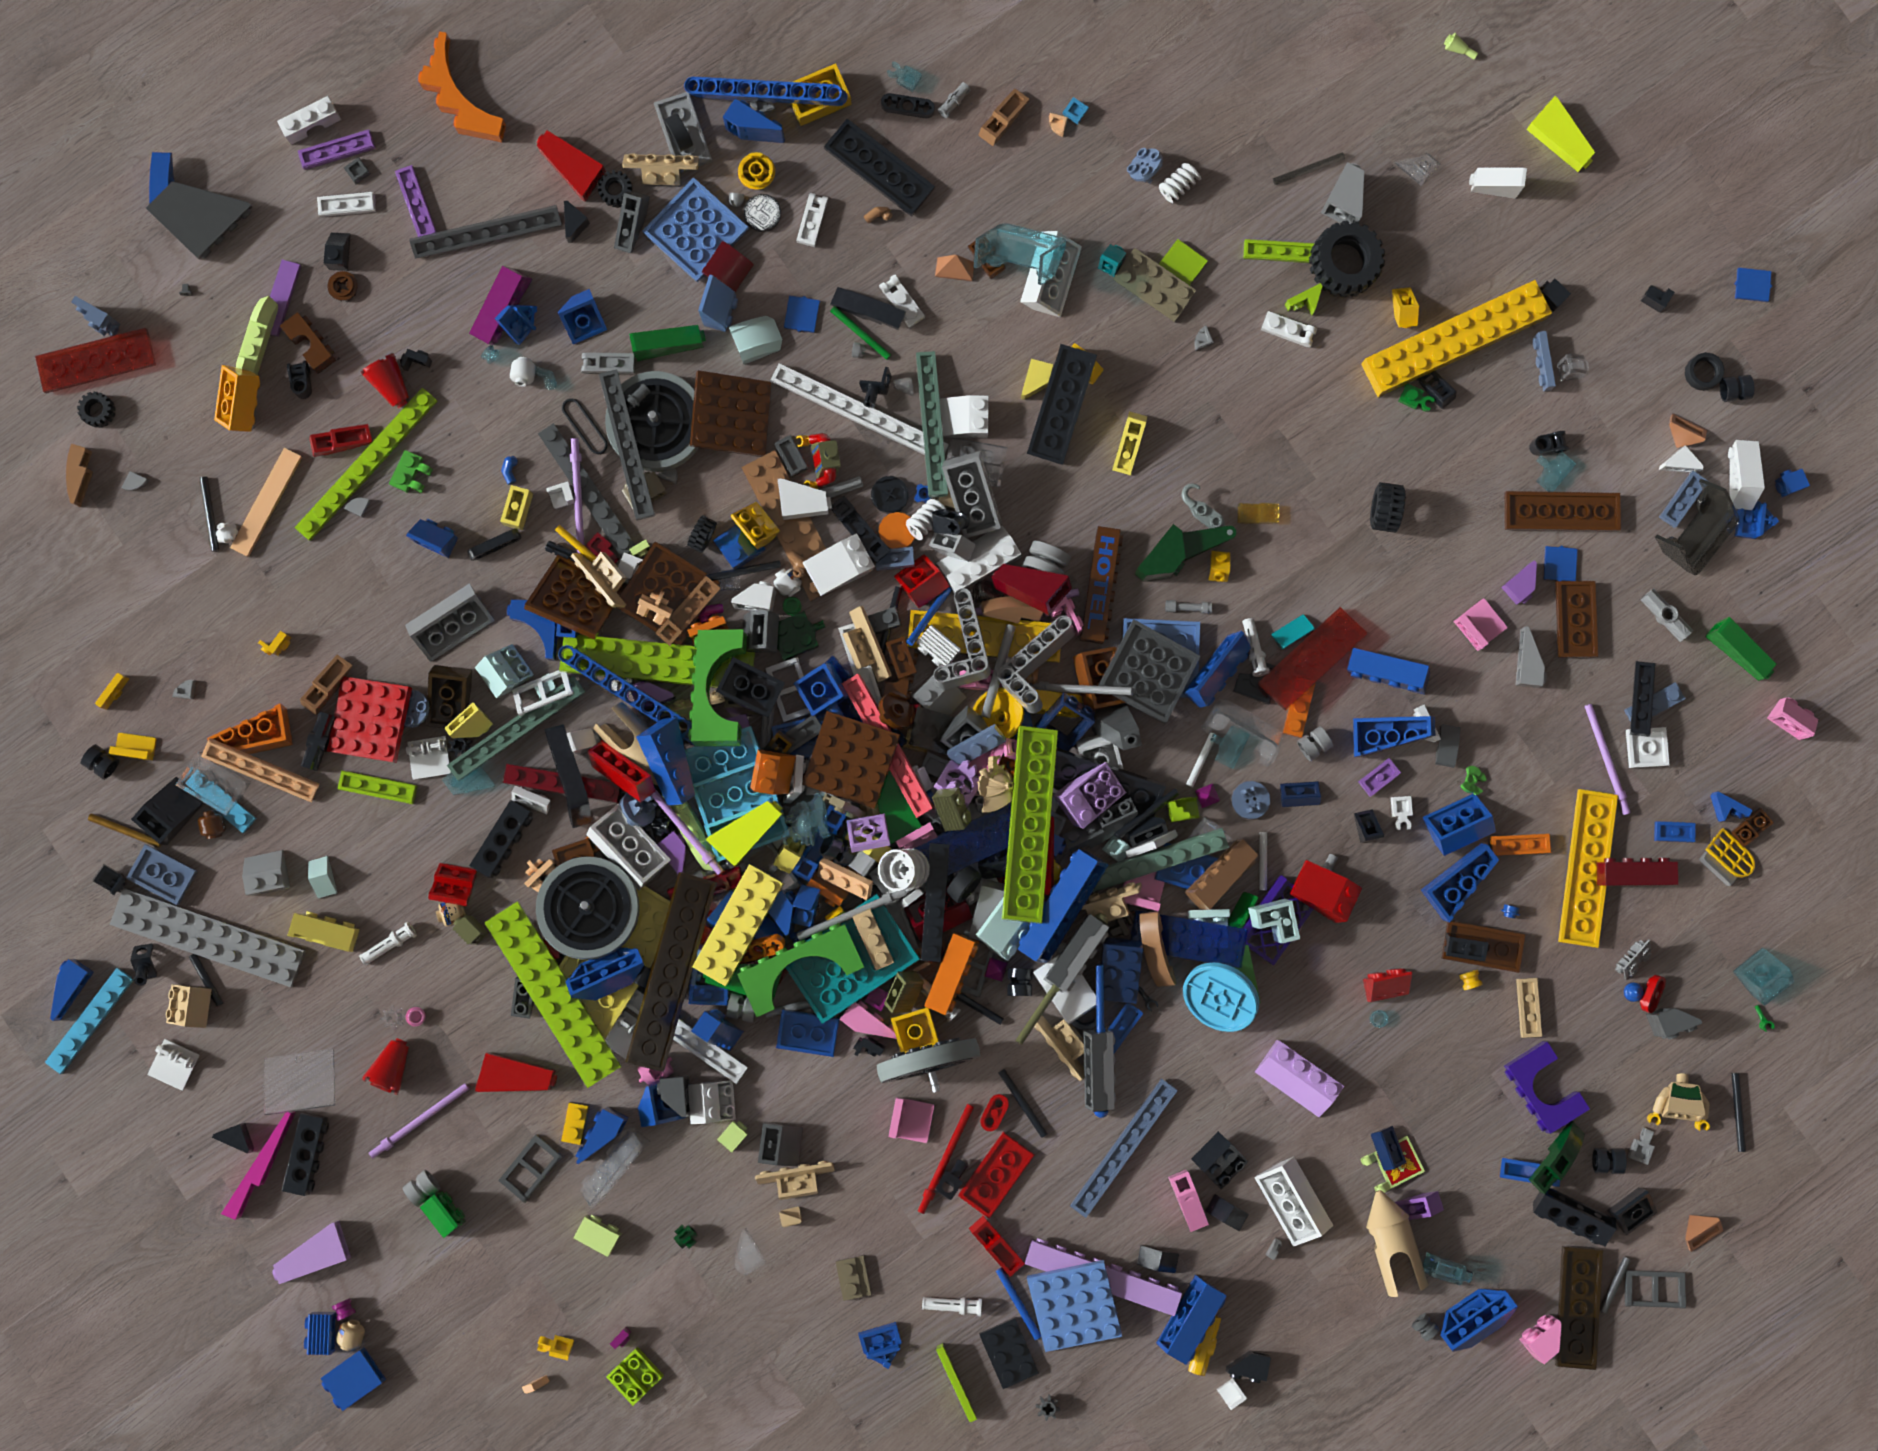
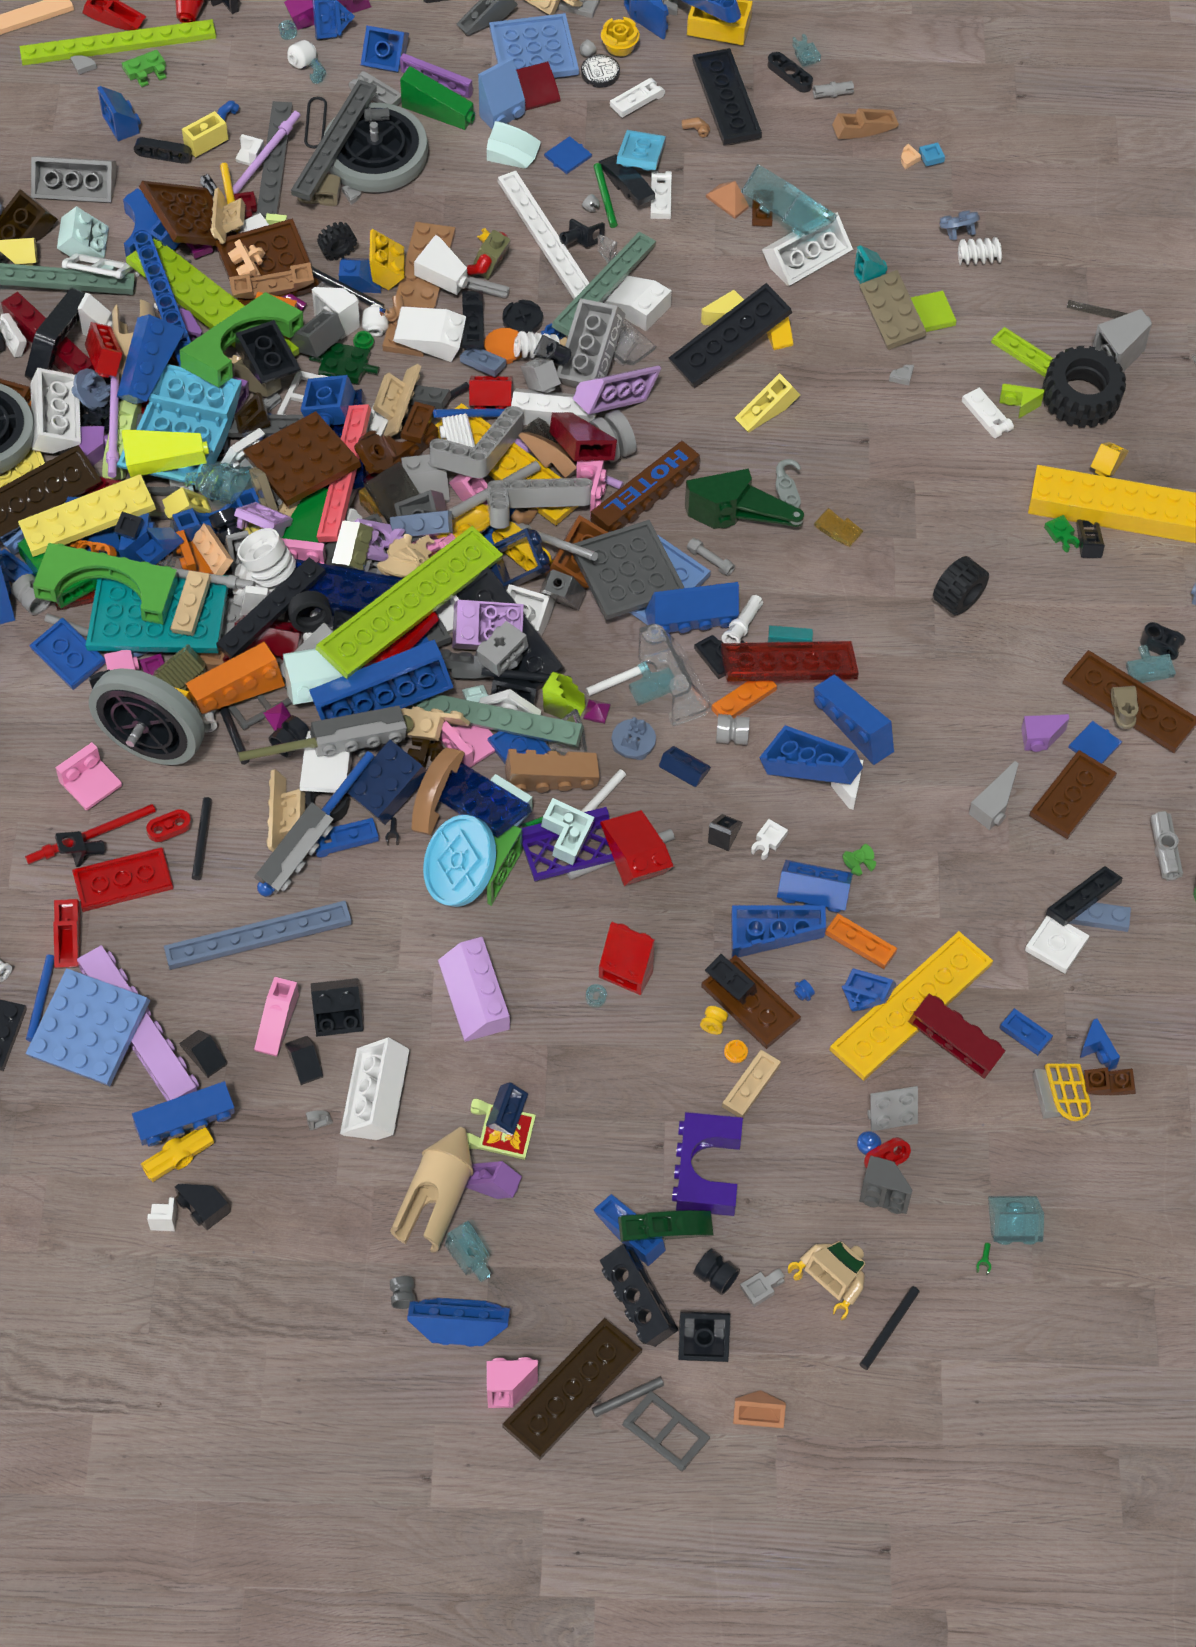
camera: 35 degrees right, 25 degrees down
(643, 314) = (453, 81): none -> medium lavender tile
(730, 413) = (441, 176): reddish brown plate -> none
(772, 772) = (226, 422): orange slope -> none
(780, 915) = (128, 525): none -> black plate
(791, 455) = (465, 241): dark grey tile -> none
(859, 273) = (641, 150): none -> medium azure plate
(1019, 519) = (616, 390): none -> lavender slope
(1127, 824) = (502, 648): none -> light grey brick
(1219, 566) = (765, 543): yellow bracket -> none
(1379, 777) = (771, 797): medium lavender plate -> none
(1448, 745) = (859, 814): dark grey slope -> none
(1480, 624) = (974, 739): bright pink bracket -> none
(1500, 990) = (736, 1051): none -> light orange plate
(1552, 881) = (867, 989): none -> blue slope
(1566, 521) = (1125, 706): none -> dark tan piece
(1607, 759) = (997, 965): lavender bar -> none

